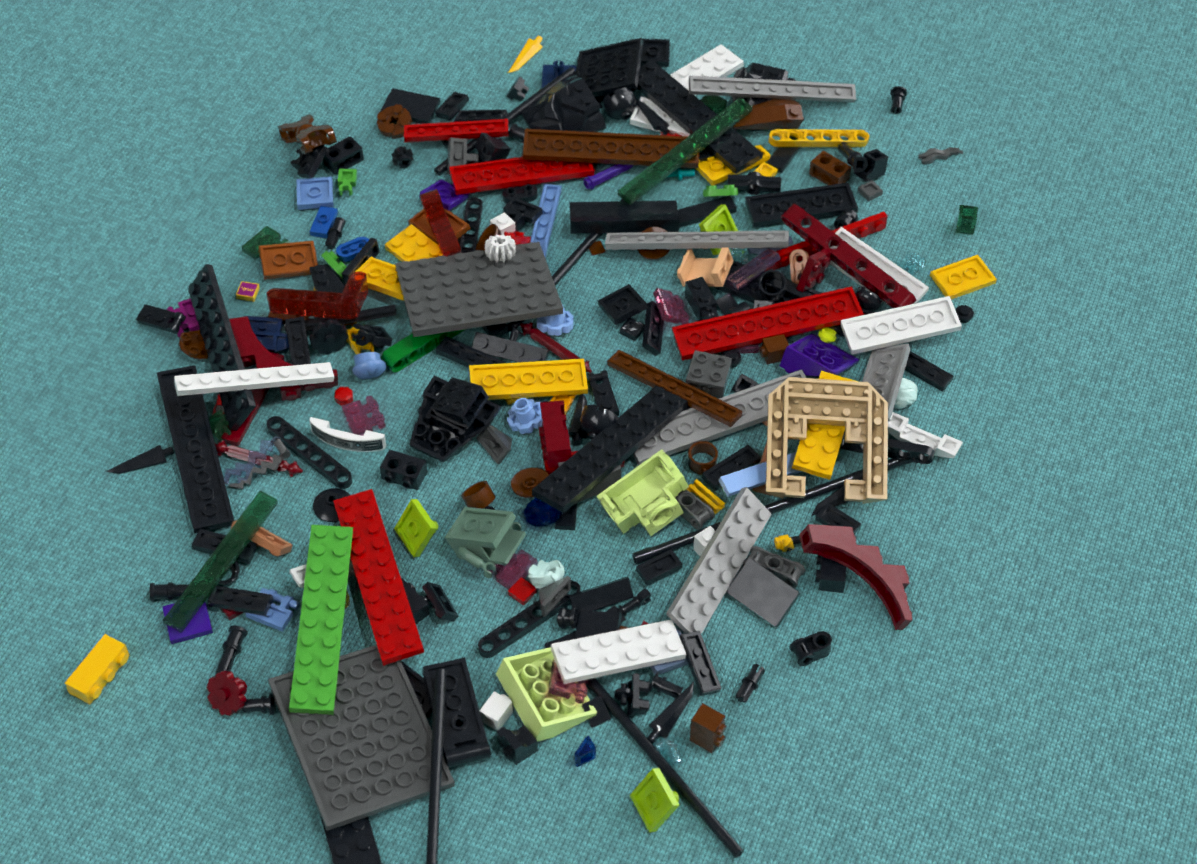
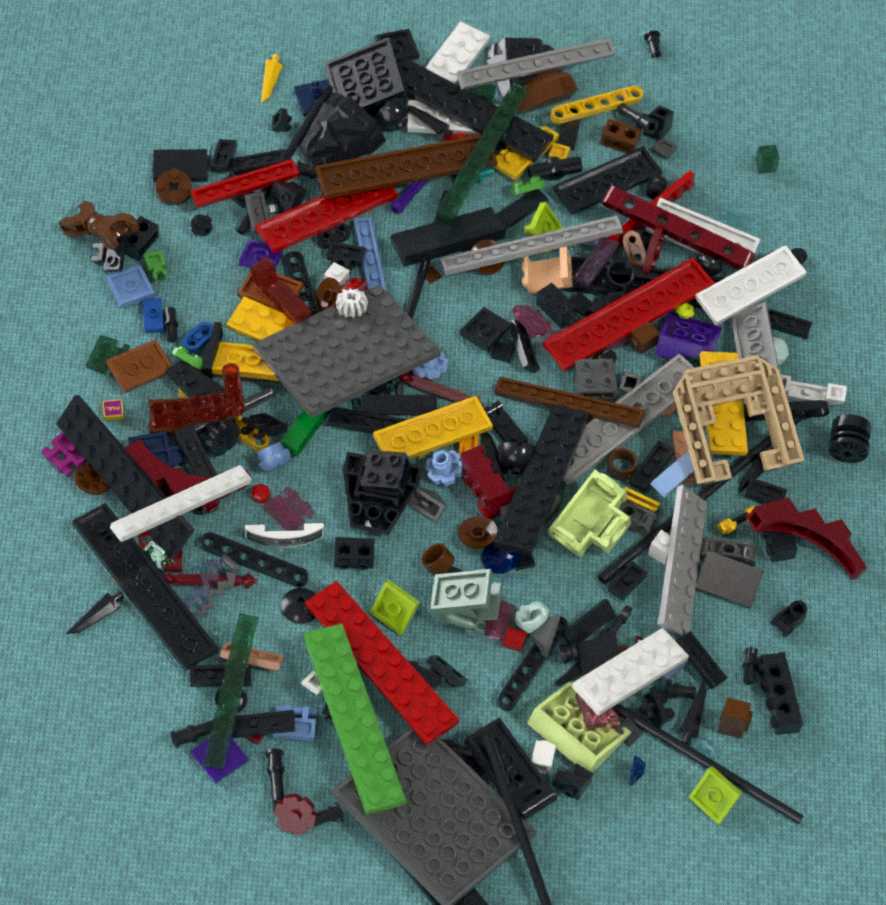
camera: 25 degrees left, 5 degrees up
(97, 669) = (161, 828): yellow brick -> none
(160, 318) = (43, 462): black plate -> none
(767, 750) = (777, 664): none -> black brick
(932, 154) = (708, 94): dark grey hair -> none
(945, 491) = (850, 438): none -> black wheel
(963, 277) = (782, 218): yellow tile -> none

